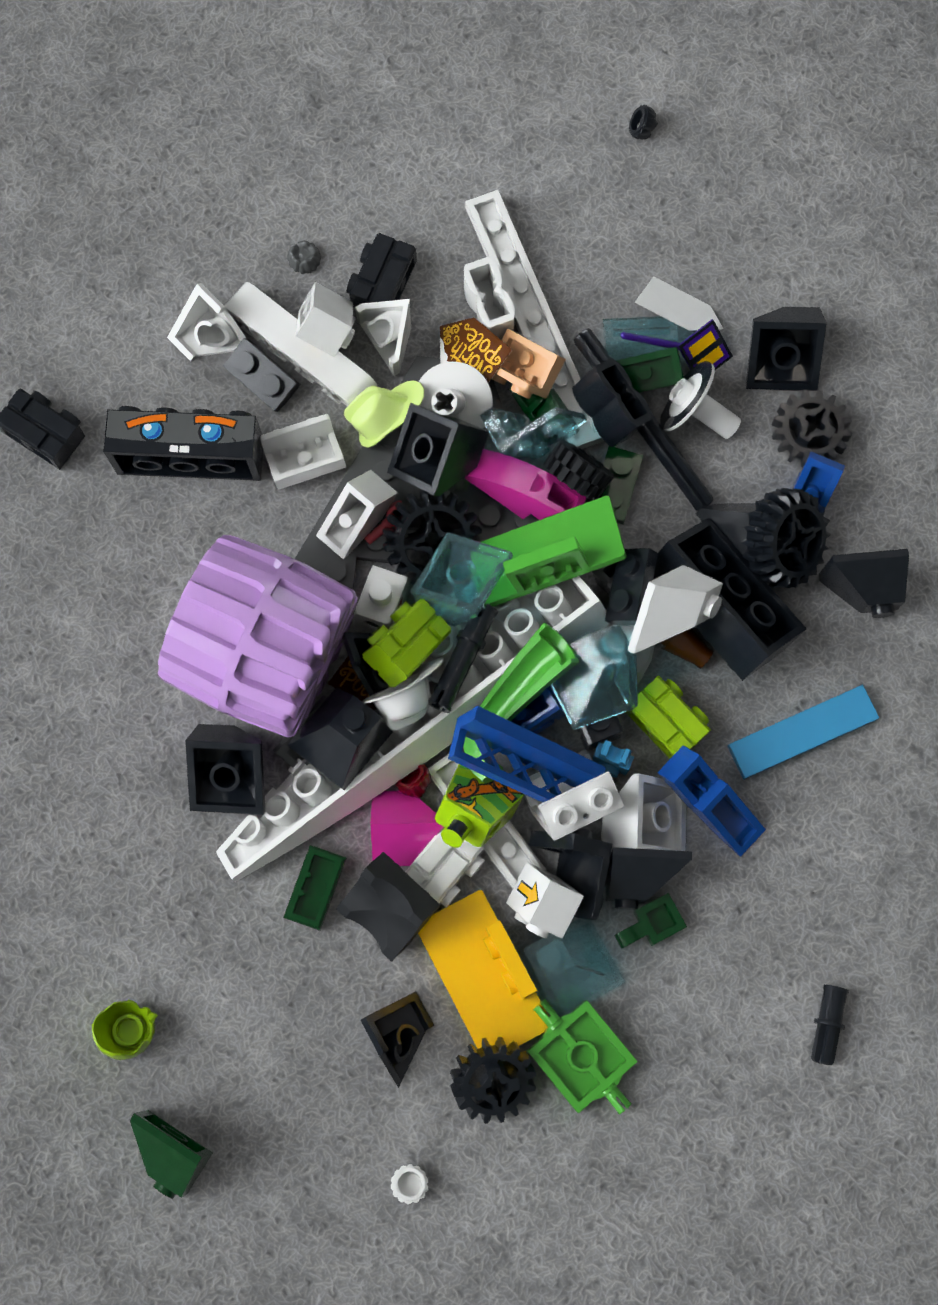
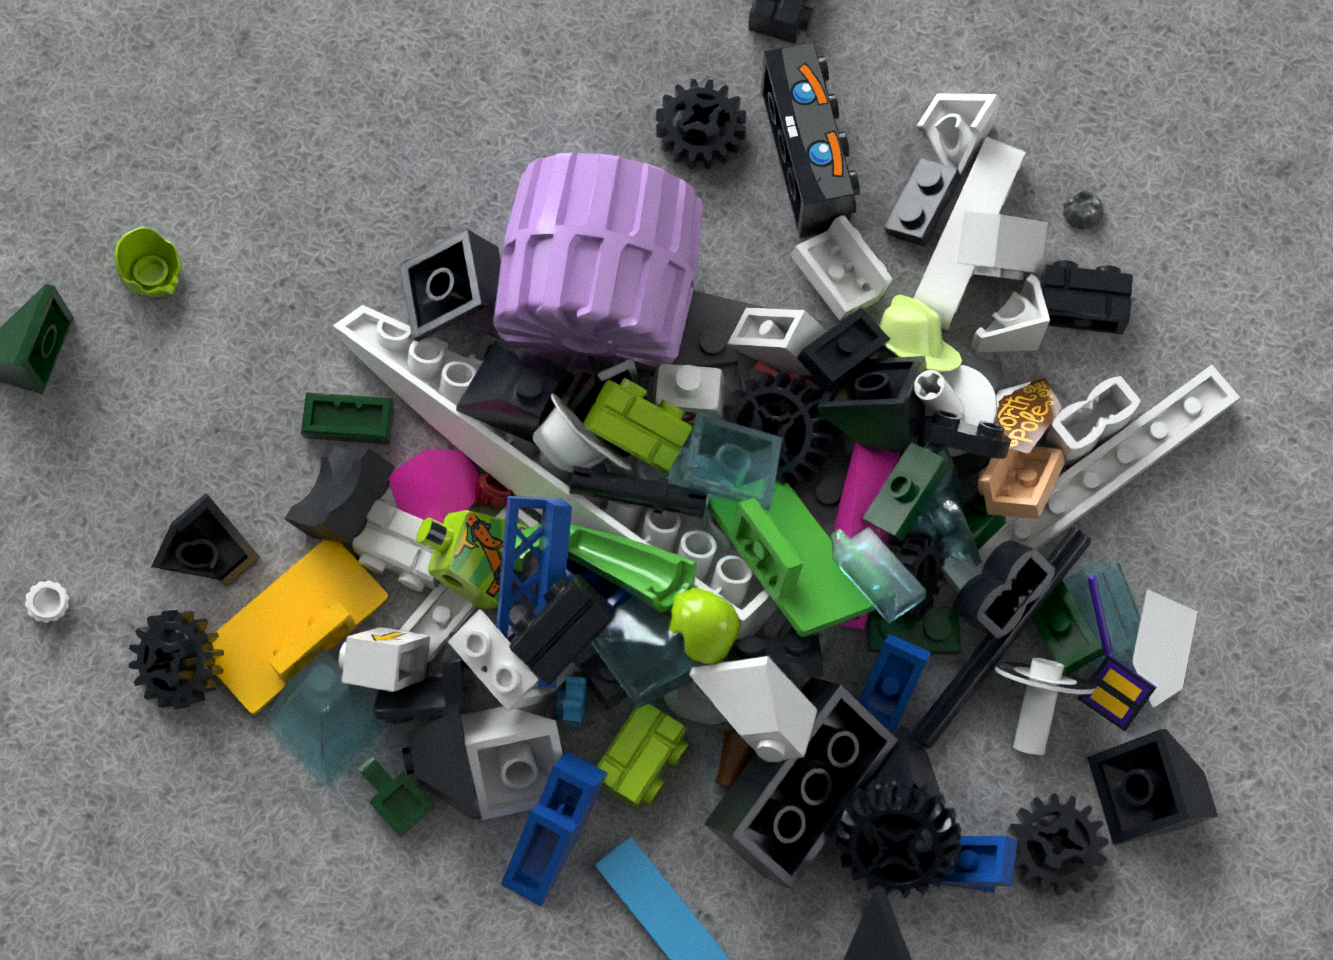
camera: 75 degrees right, 5 degrees down
(123, 531) = (694, 139): none -> black gear
(385, 463) = (843, 348): none -> black plate
(487, 392) = (949, 431): none -> black plate
(524, 446) = (906, 491): none -> dark green plate
(572, 742) = (561, 628): none -> black brick
(582, 1056) = (225, 753): bright green plate -> none
(586, 488) = (877, 573): none -> clear light blue panel
(598, 626) = (707, 624): none -> lime hair
(657, 509) = (893, 680): none -> blue slope

